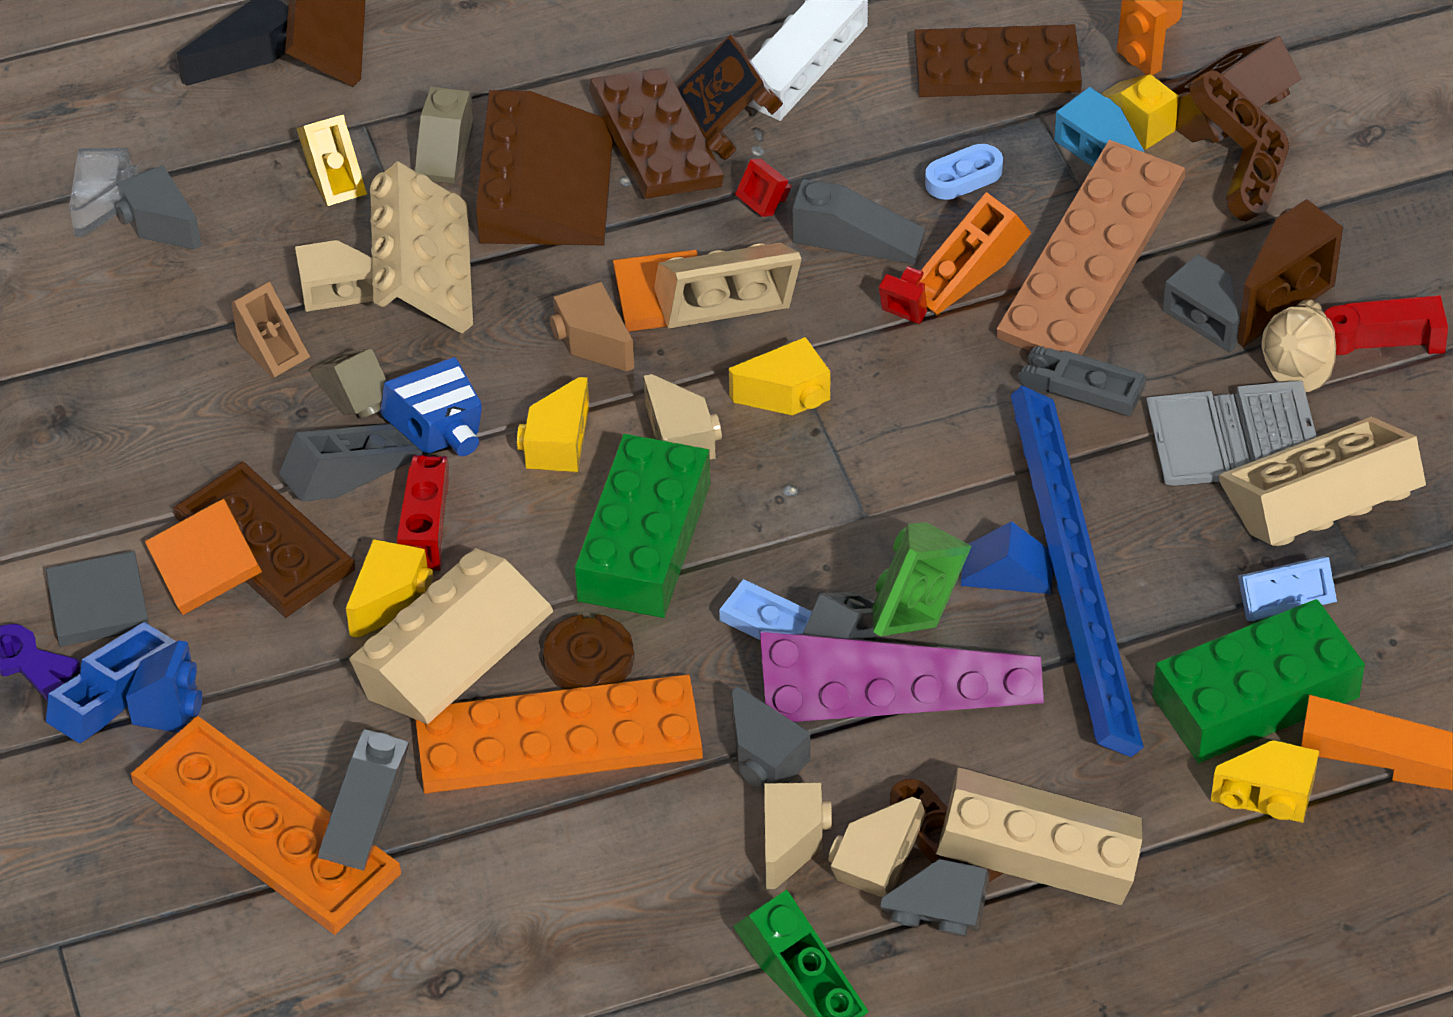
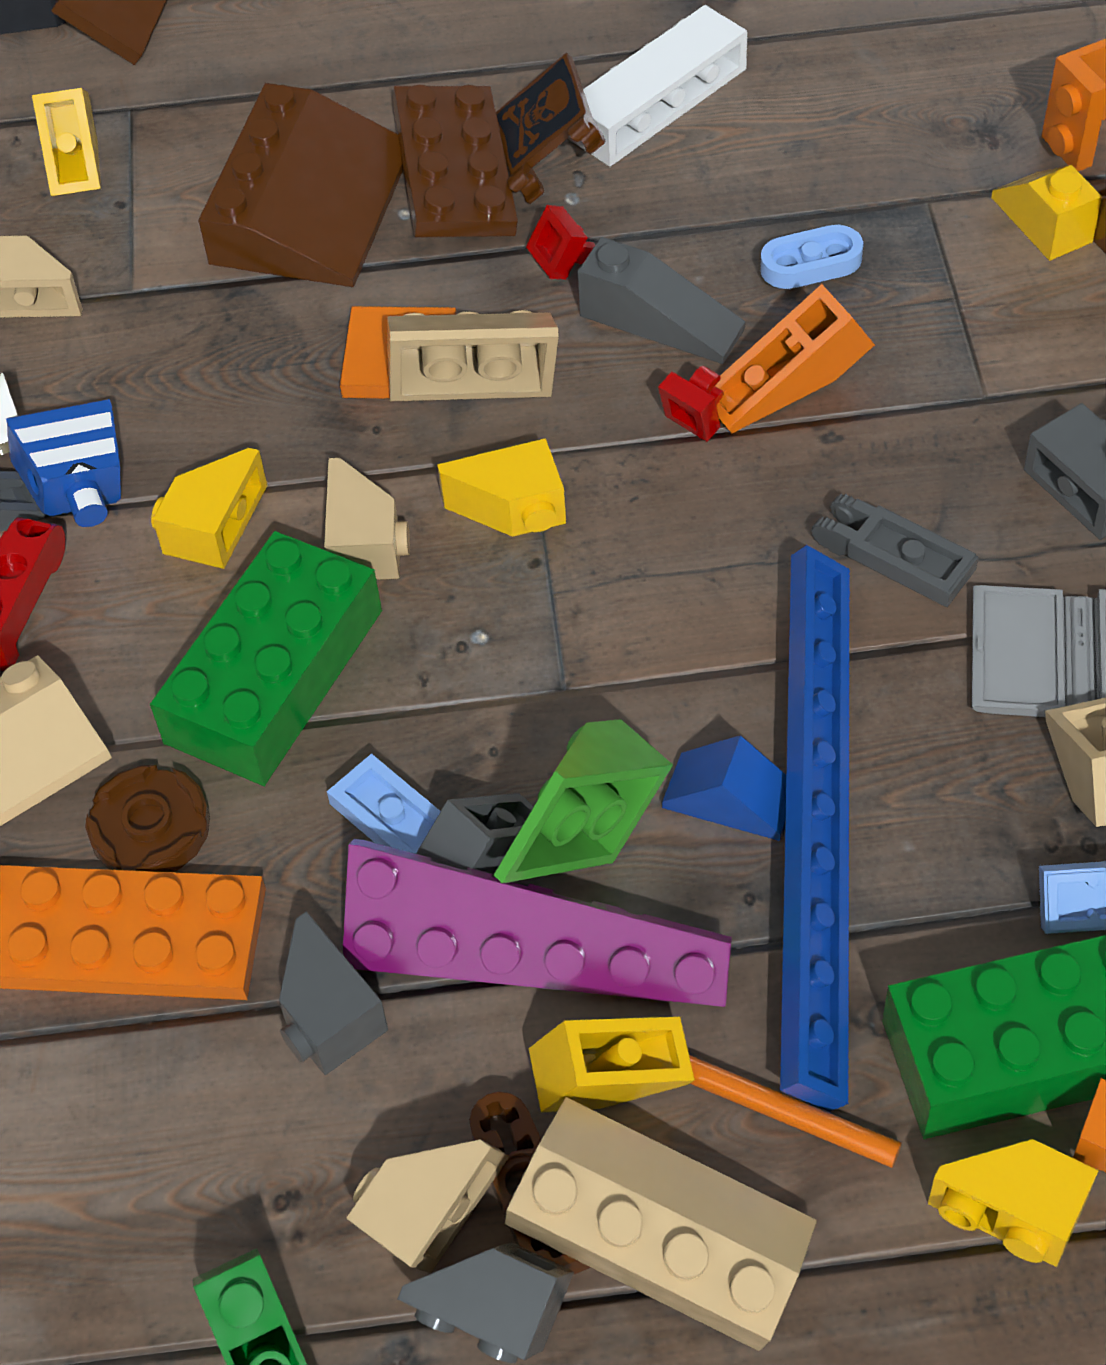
camera: 15 degrees right, 5 degrees up
(421, 246) = (123, 259): tan bracket -> none
(444, 134) = (204, 129): dark tan slope -> none
(592, 327) = (295, 385): medium nougat slope -> none
(793, 827) = (319, 1140): tan slope -> none
(977, 744) = (609, 1061): none -> yellow slope
(997, 60) = (890, 128): reddish brown plate -> none
(1088, 125) = (995, 237): dark azure slope -> none
(1091, 757) = (795, 1113): none -> orange bar
(1092, 251) = (945, 380): nougat plate -> none

